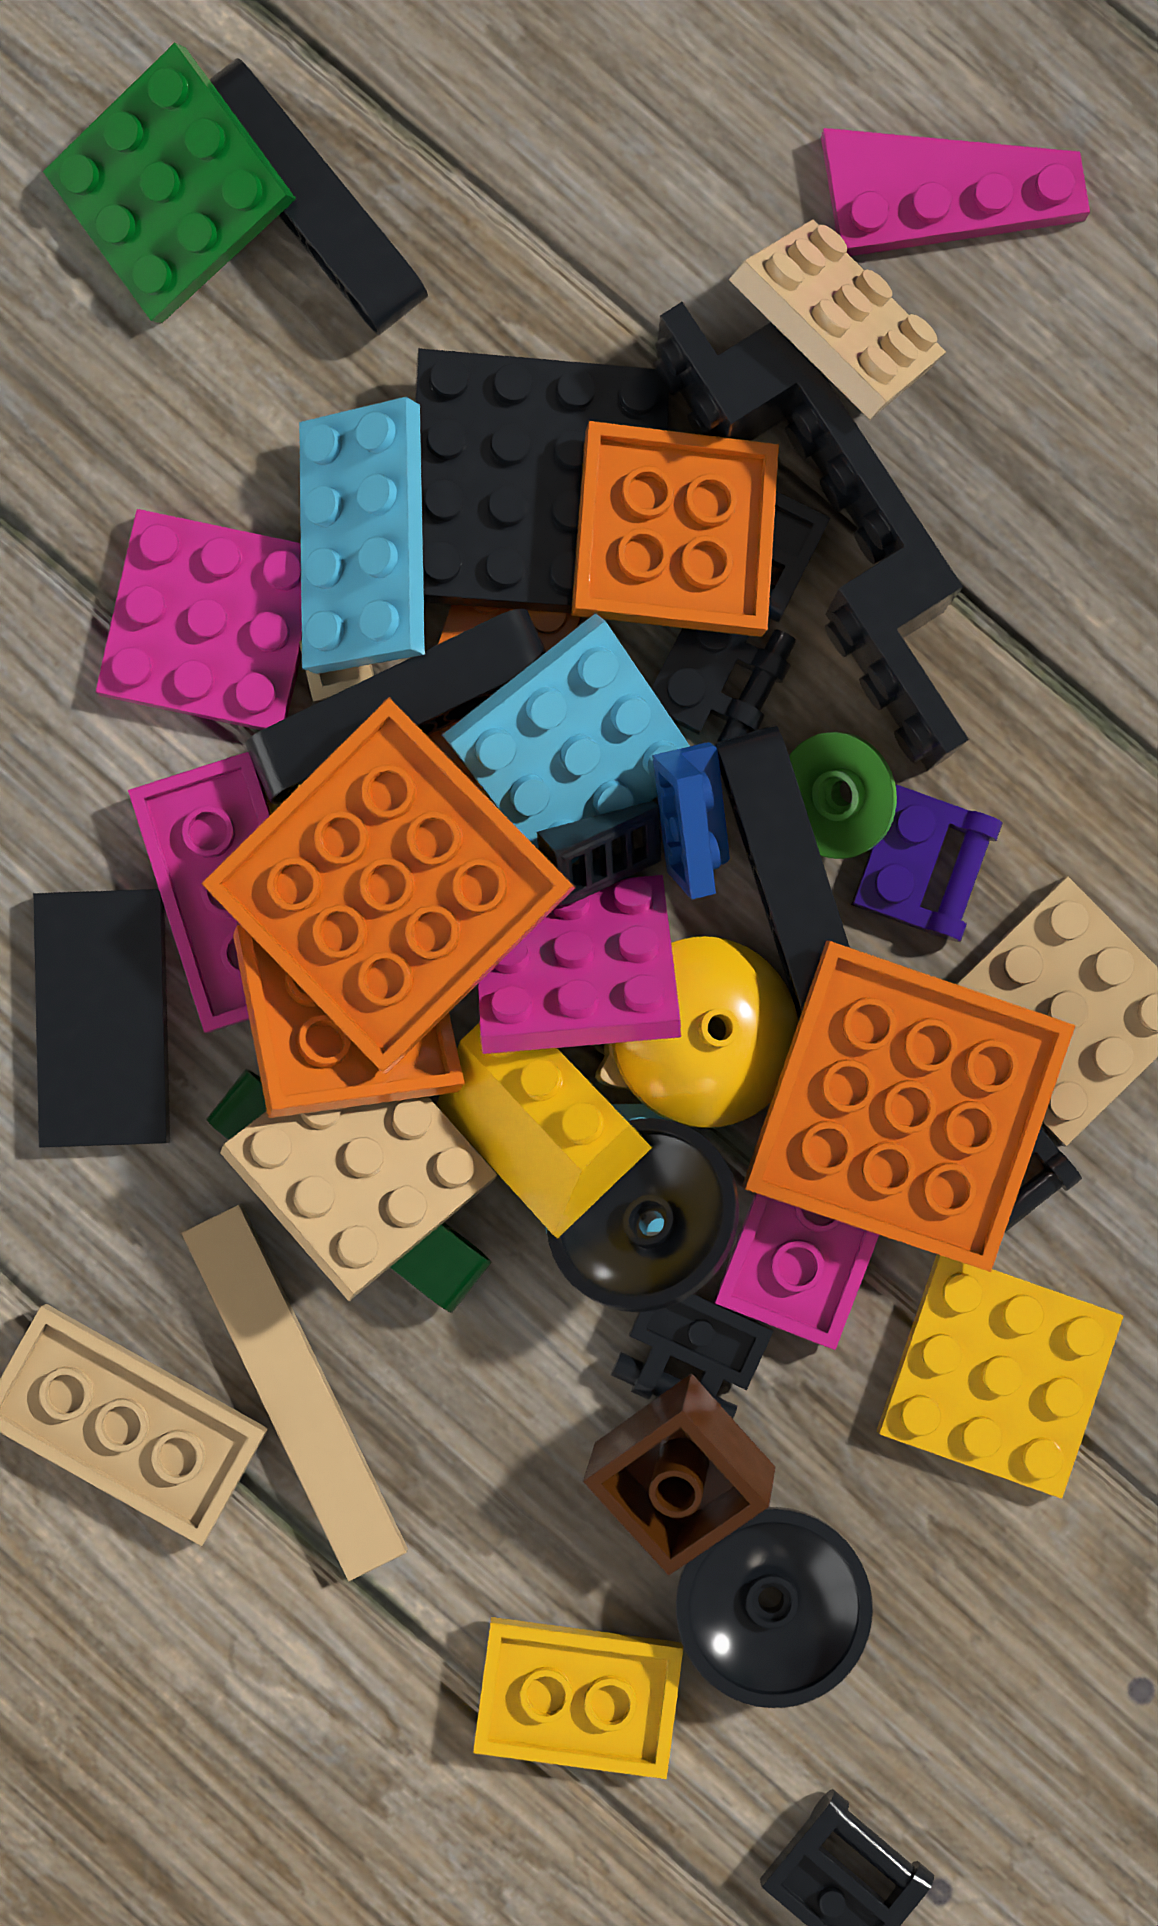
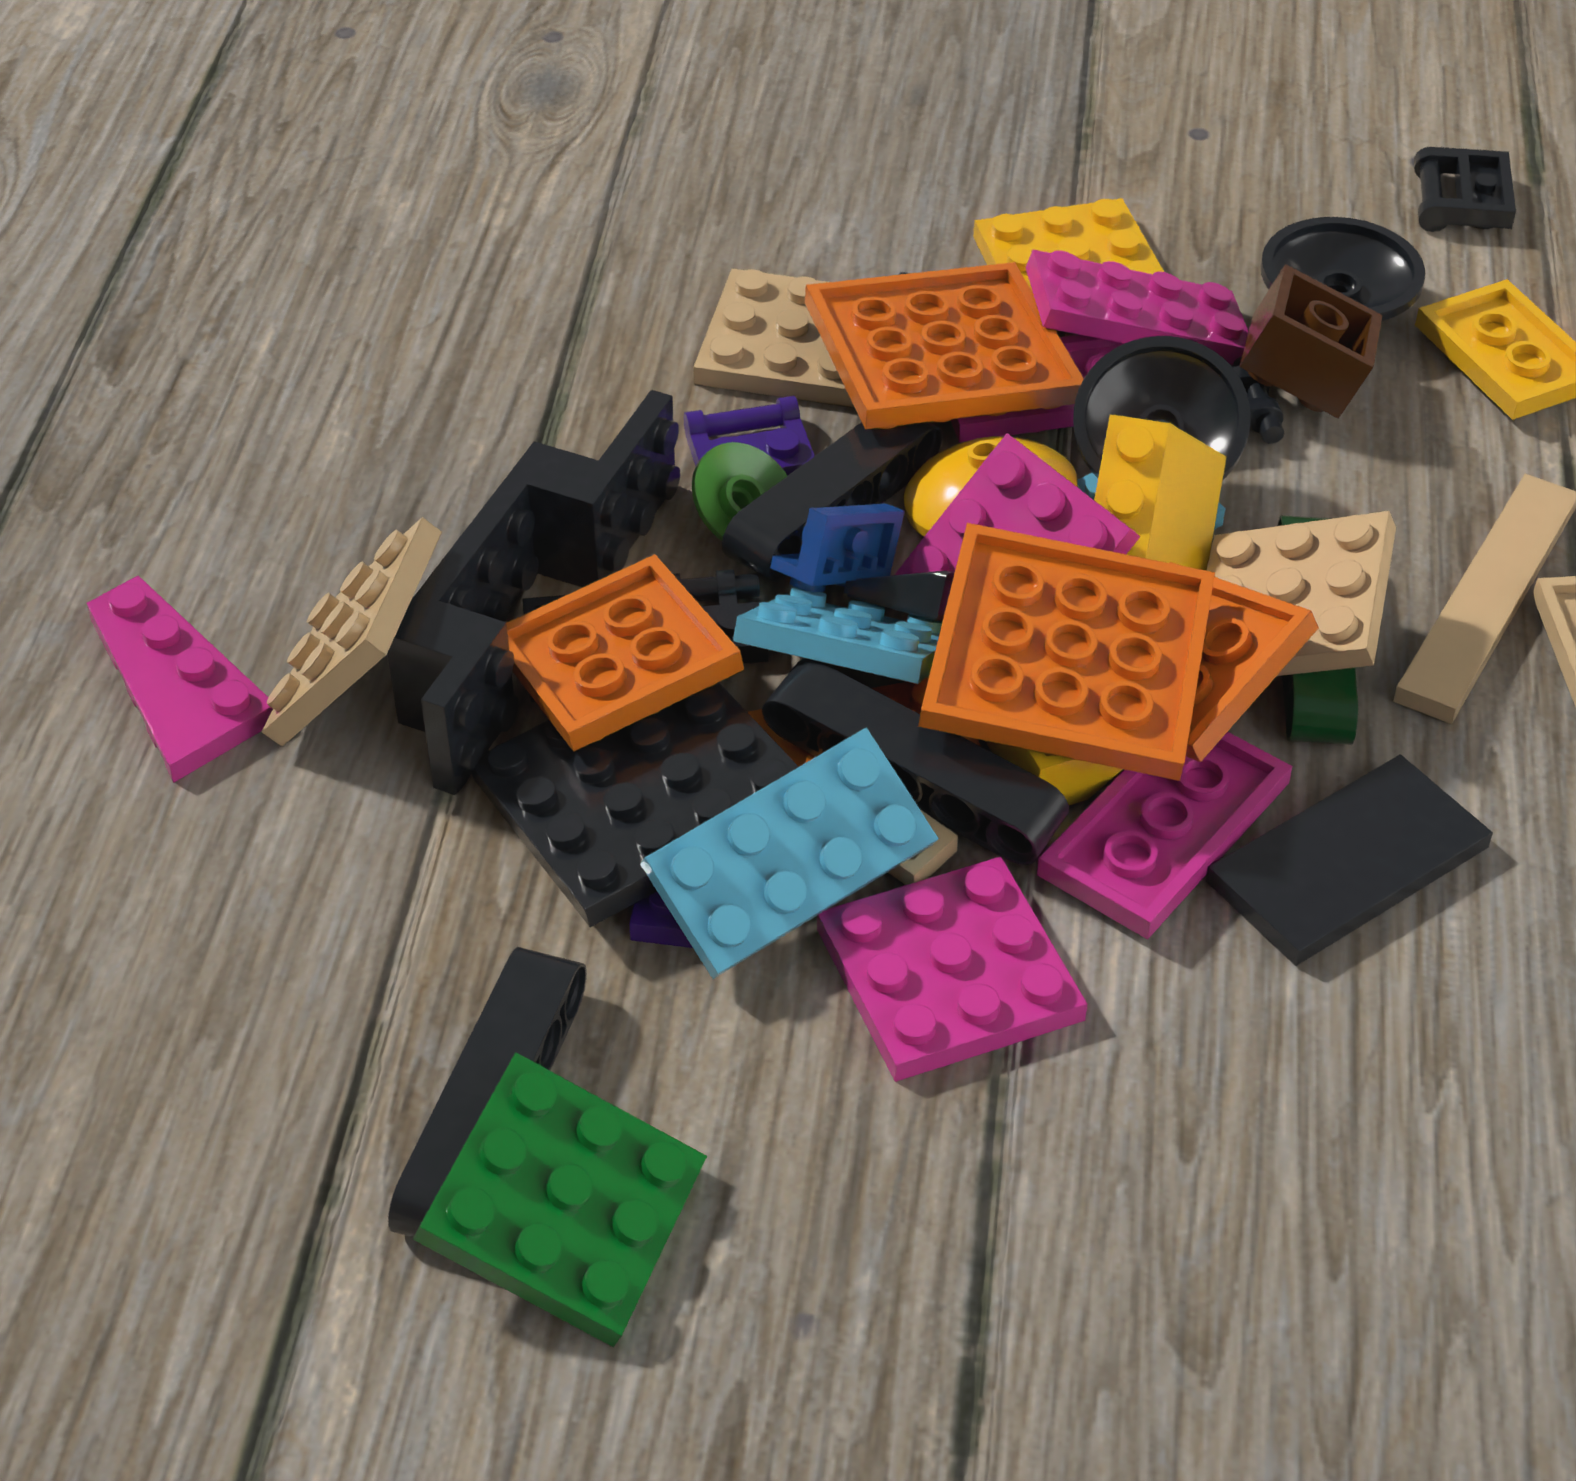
camera: 125 degrees left, 40 degrees down
(852, 1352) = (1129, 304): none -> dark pink plate

